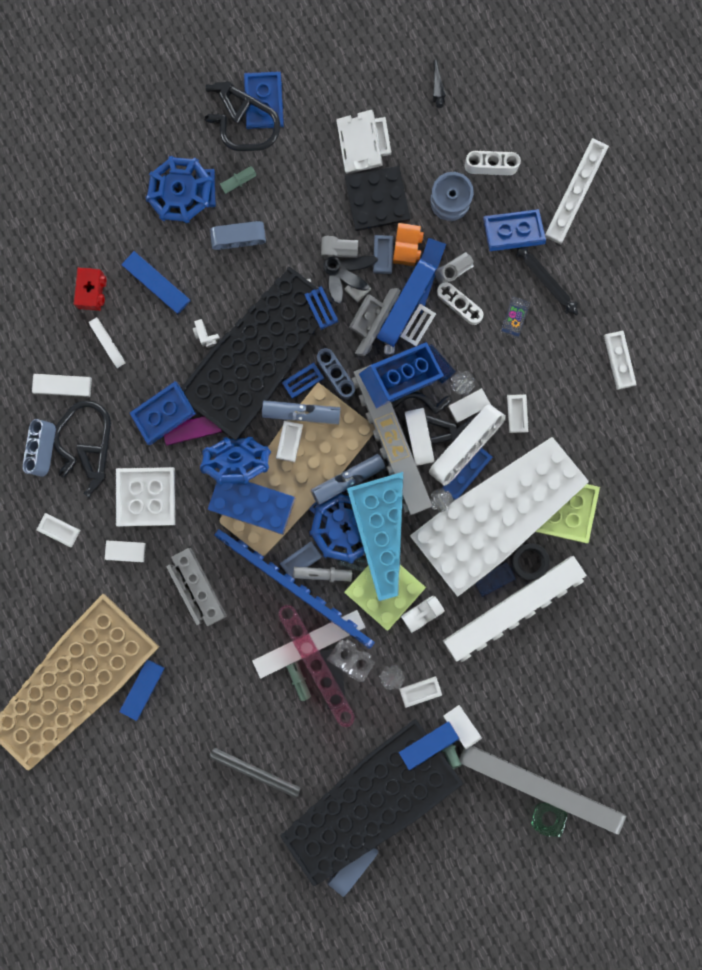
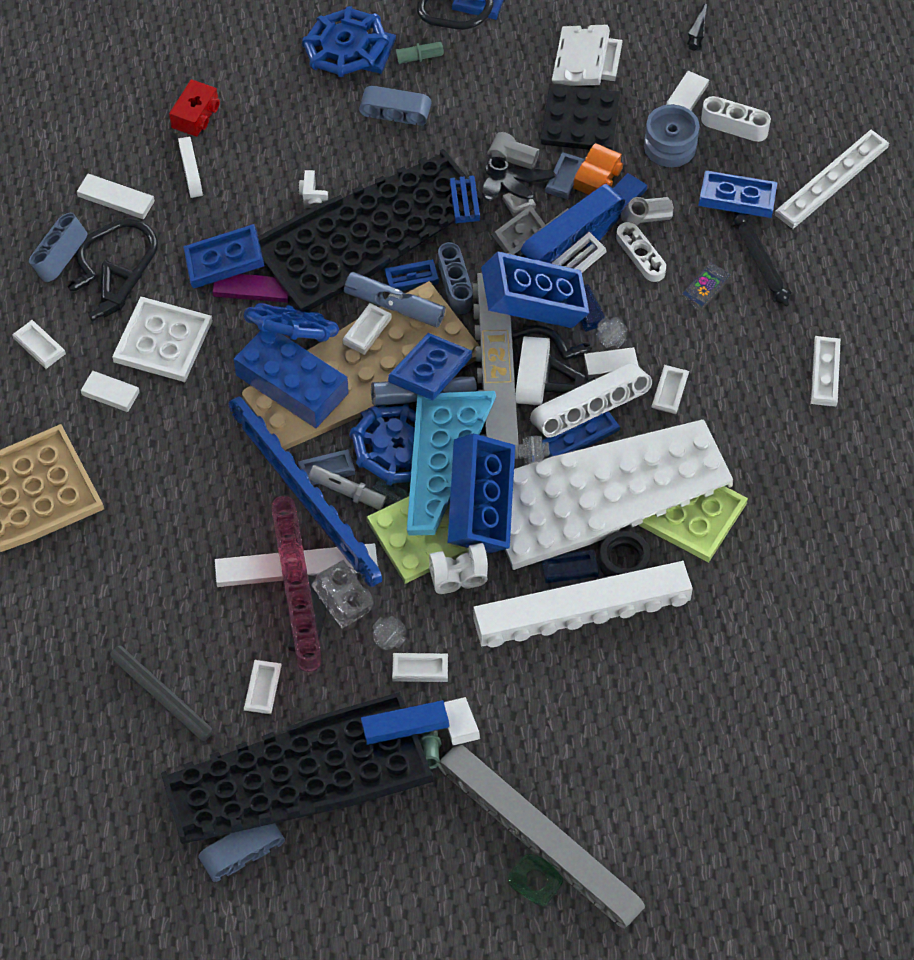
camera: 20 degrees right, 25 degrees down
(142, 689) = (59, 550): blue tile -> none
(155, 282) = (276, 126): blue tile -> none
(199, 586) = (186, 460): light grey brick -> none
(298, 681) = (264, 601): sand green axle -> none
(321, 744) = (262, 687): none -> white tile
(347, 462) = (430, 366): none -> blue tile
(422, 558) = (481, 492): none -> blue brick
(448, 149) = (689, 90): none -> white tile

